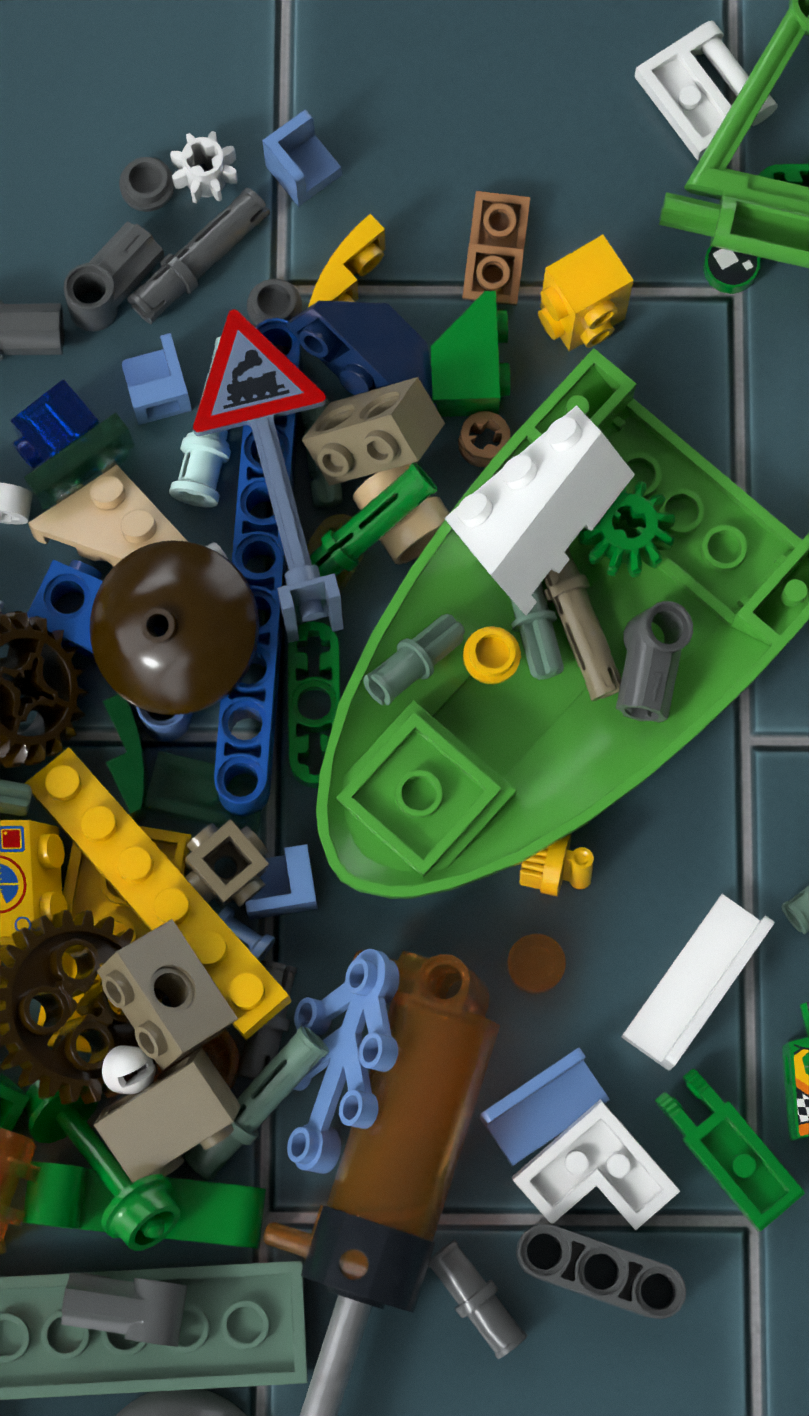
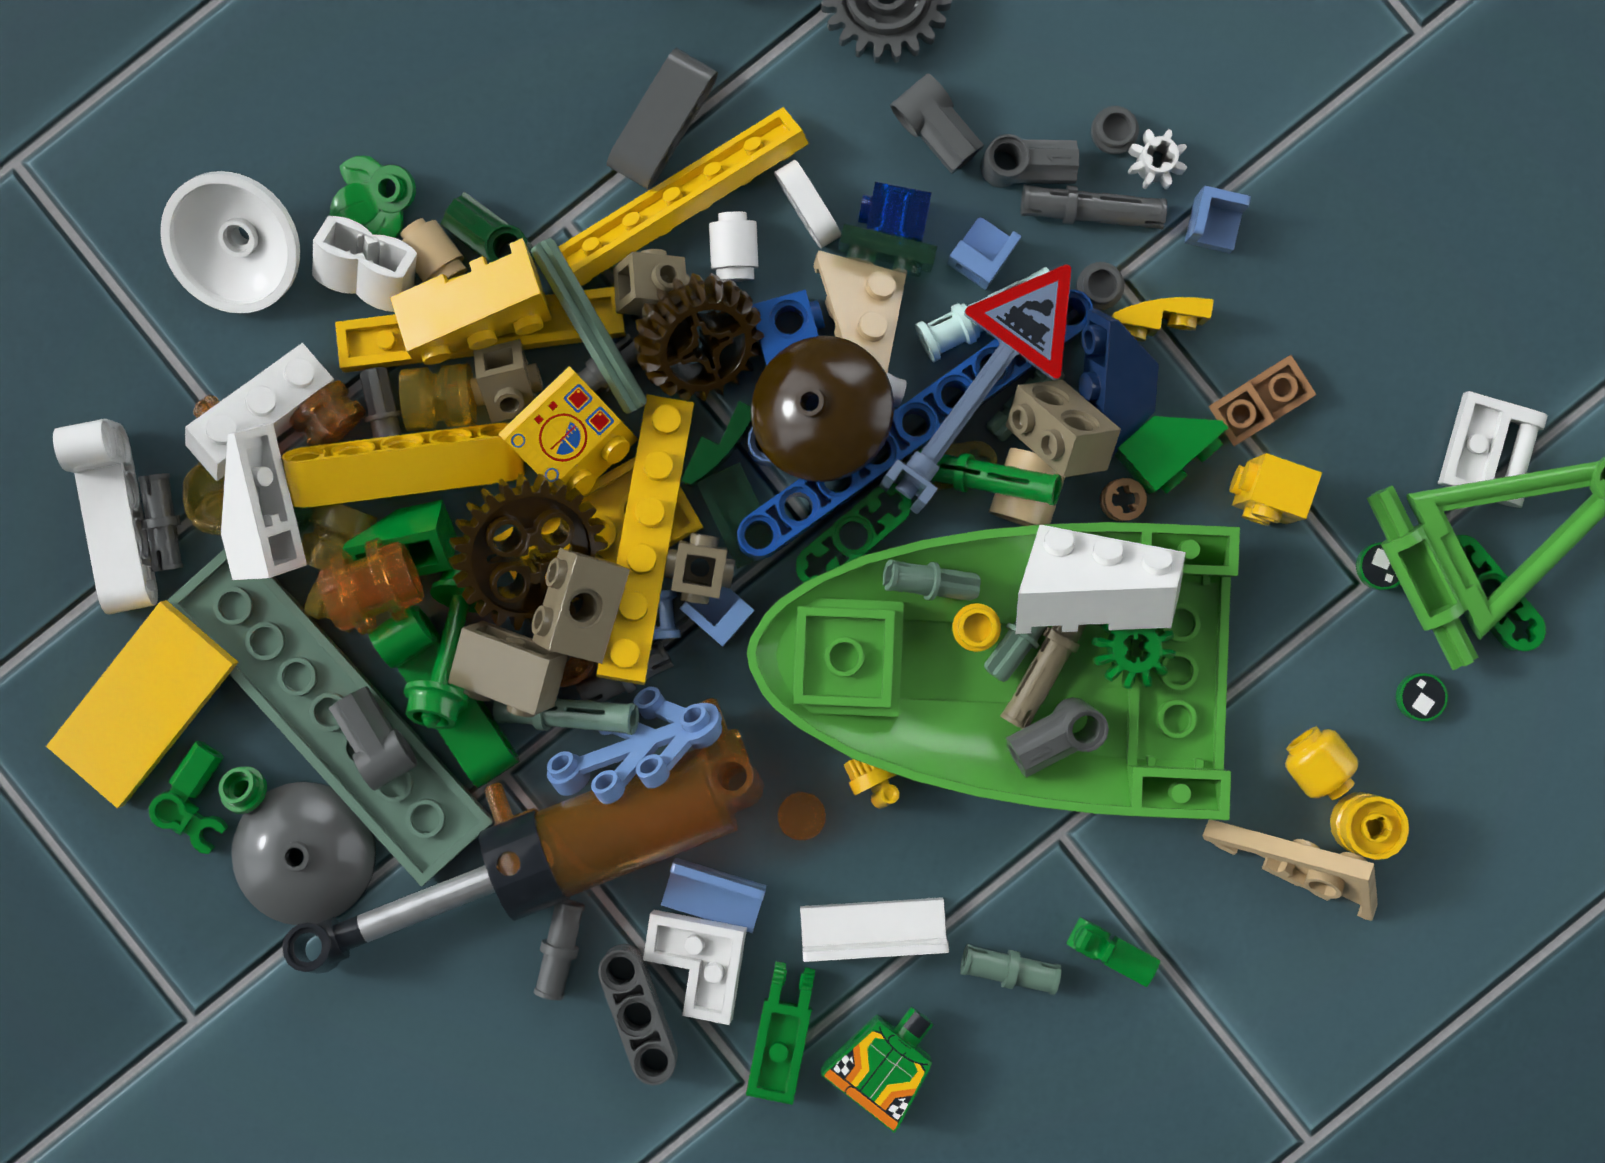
camera: 55 degrees right, 10 degrees up
(123, 1061) = (517, 613): white hinge -> none

